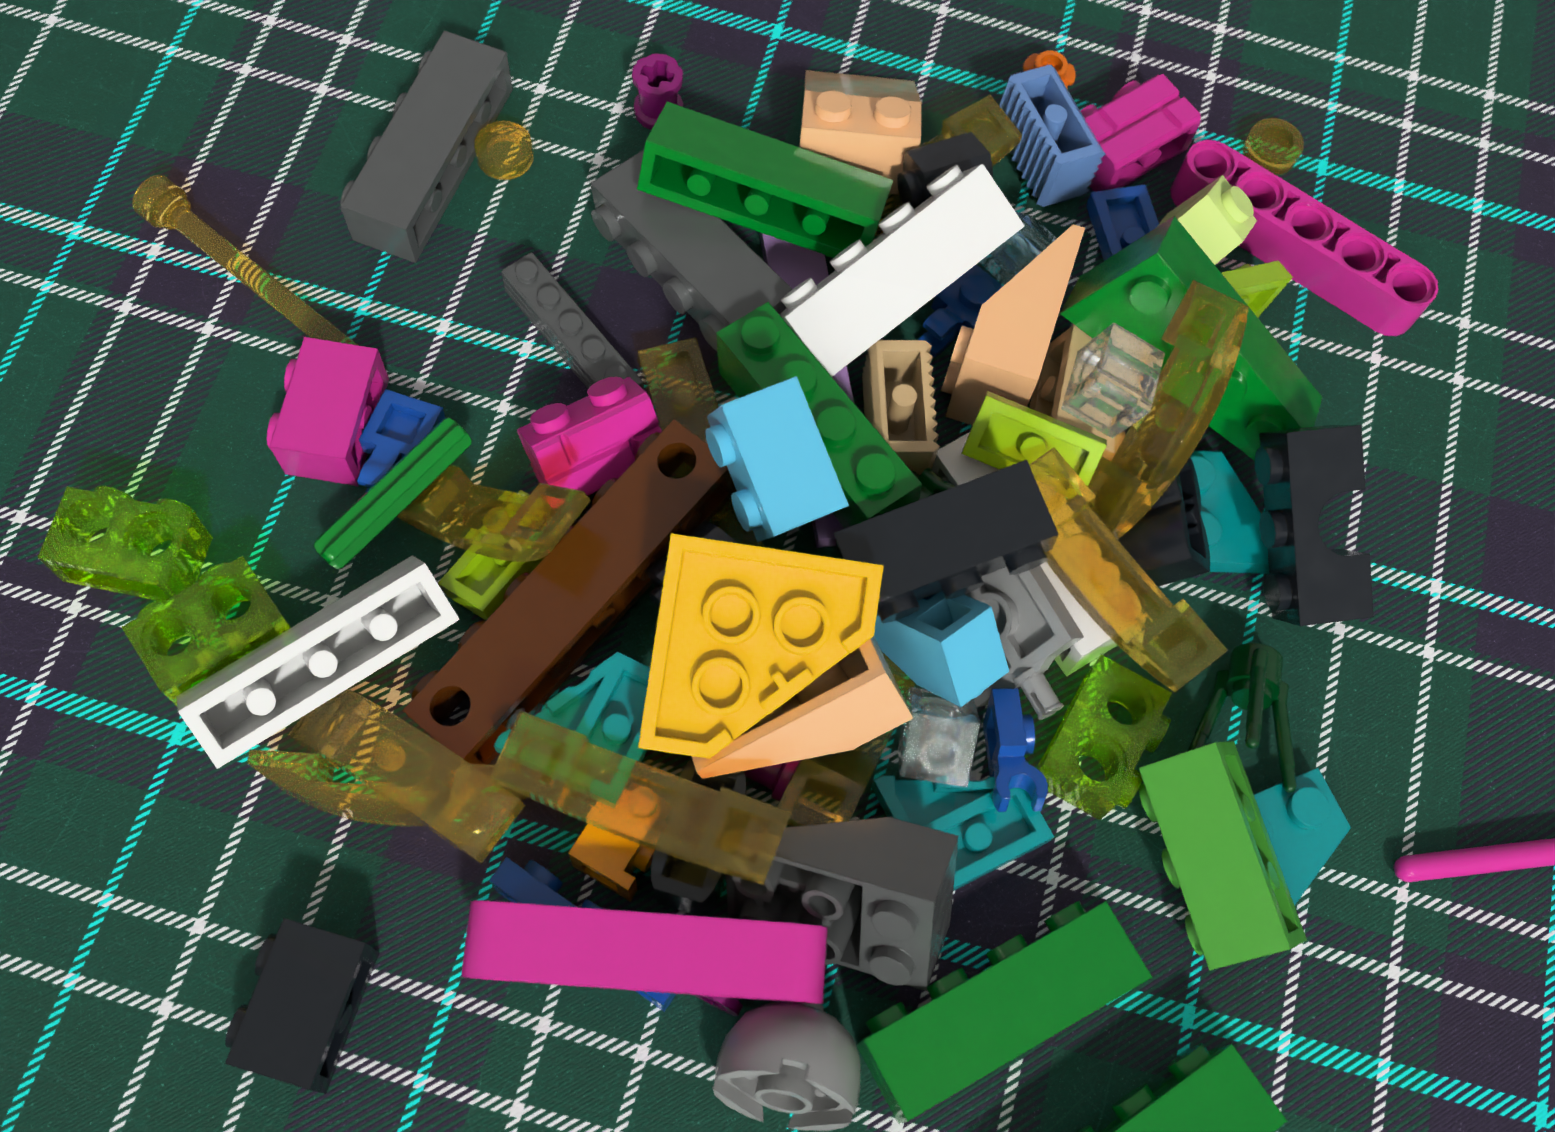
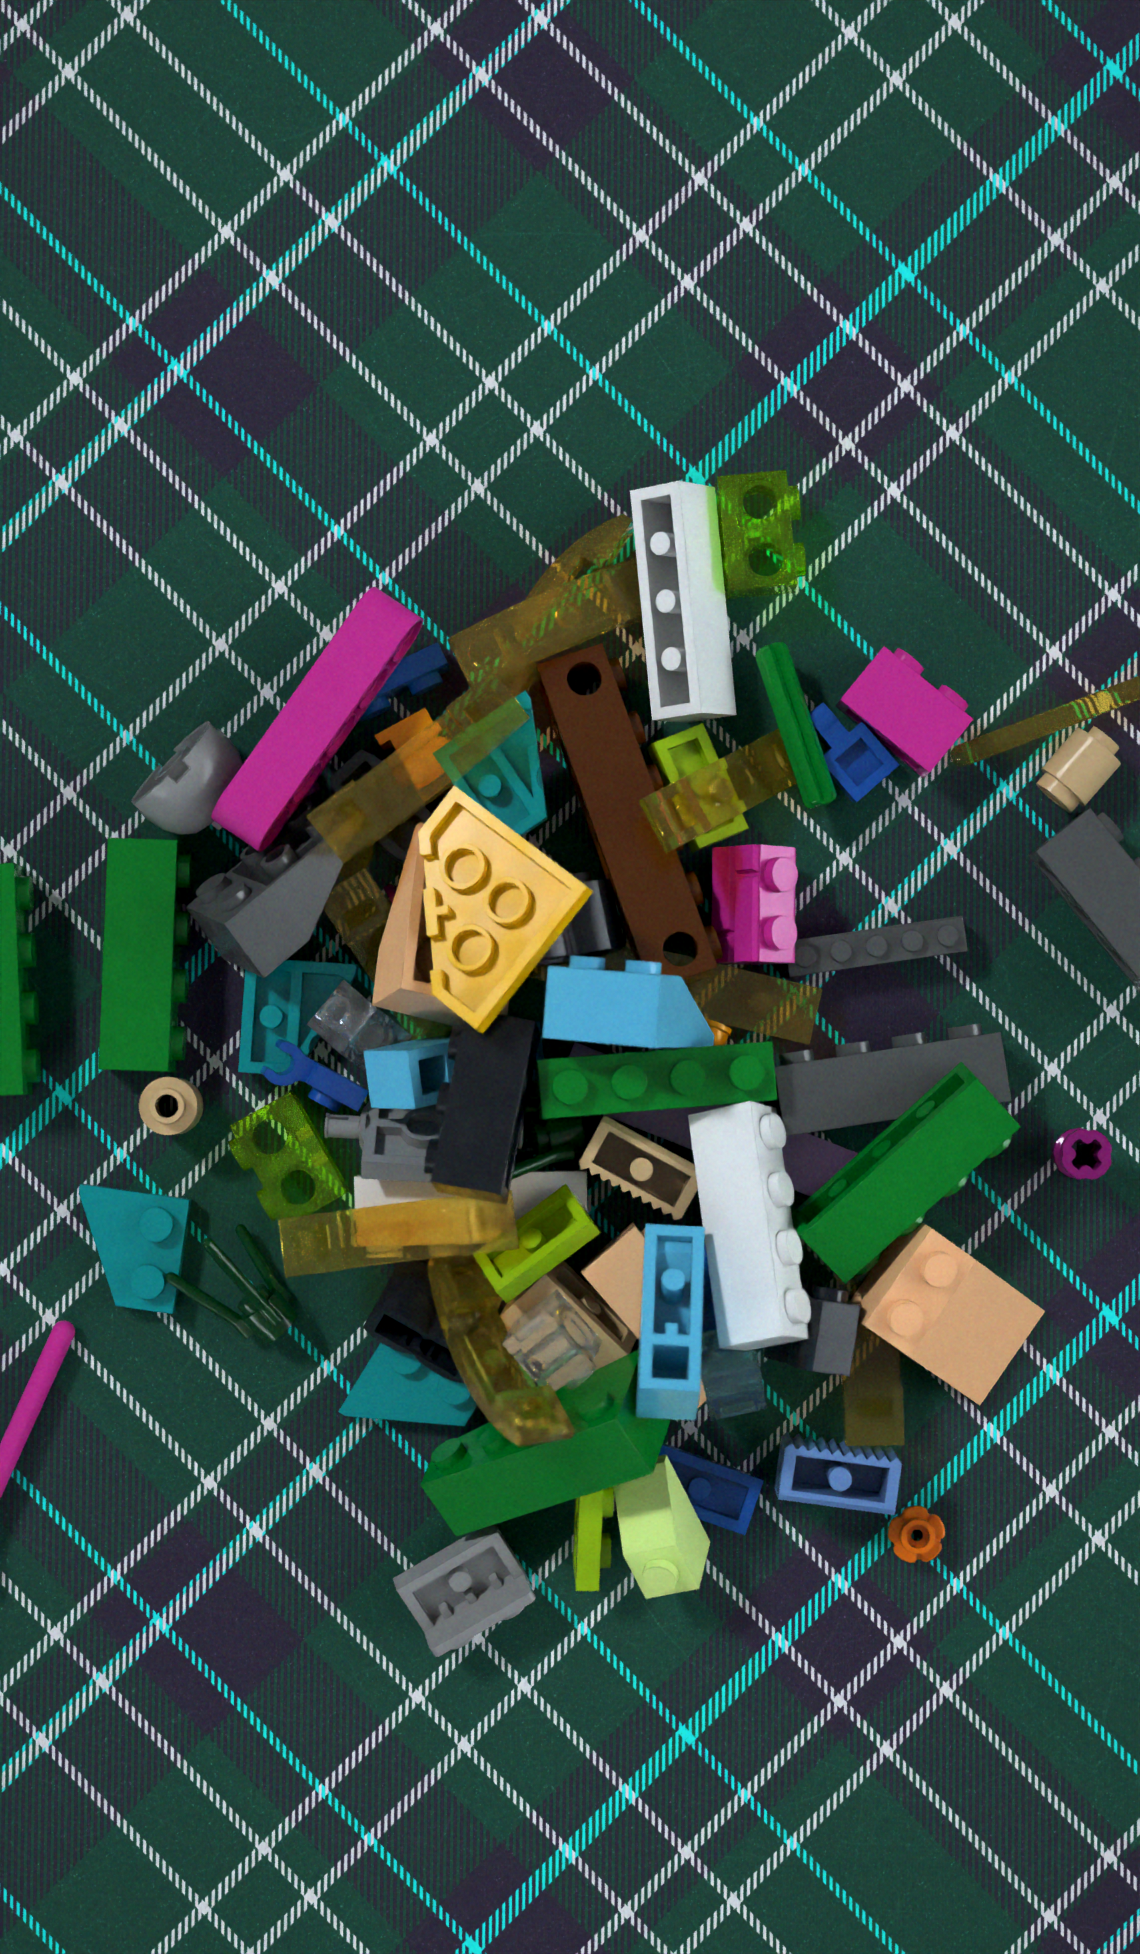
camera: 130 degrees right, 20 degrees up
(122, 556) = (858, 496): clear neon green brick -> none
(300, 1005) = (430, 473): black brick -> none
(309, 247) = (1079, 768): none -> tan brick
(504, 150) = (1100, 987): clear yellow tile -> none
(1034, 267) = (671, 1322): none -> medium azure slope
(1116, 886) = (189, 1105): none -> tan brick
(1140, 130) = (807, 1563): dark pink brick -> none
(1220, 856) = (151, 1182): bright green brick -> none
(1274, 145) = (729, 1698): clear yellow tile -> none
(1298, 477) = (391, 1453): black arch -> none
(1316, 243) = (600, 1665): dark pink beam -> none
(1360, 370) = (465, 1589): none -> light grey bracket

